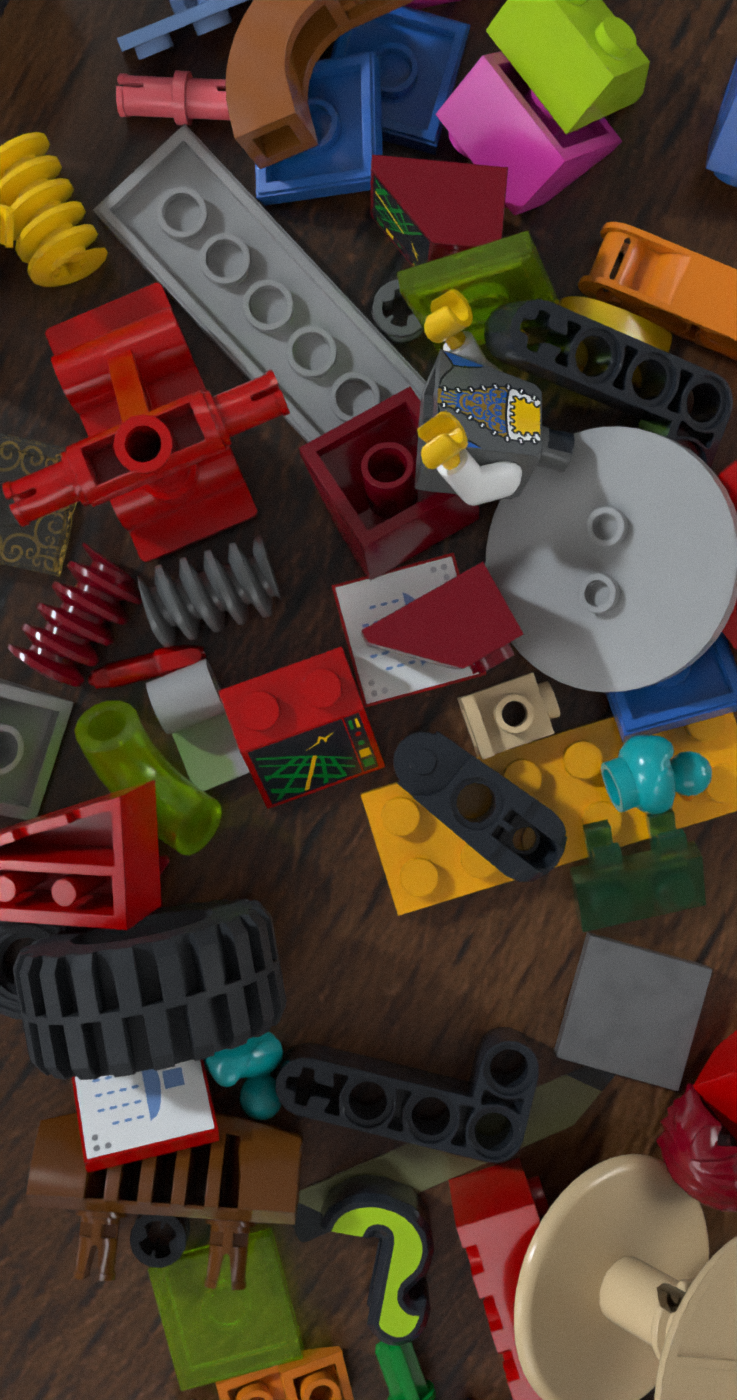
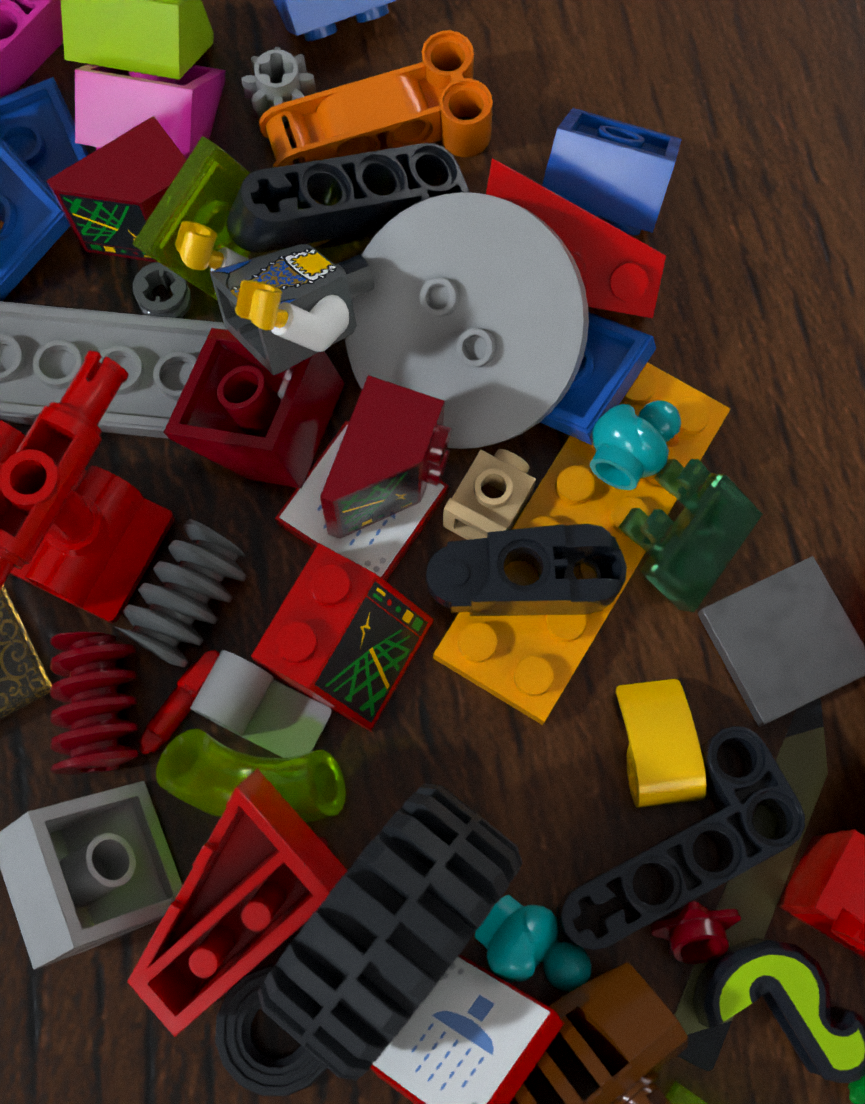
camera: 40 degrees left, 15 degrees down
(370, 1156) = (696, 933): none -> dark red plate
(471, 1004) = (663, 744): none -> yellow panel
(655, 182) = (276, 80): none -> light grey gear

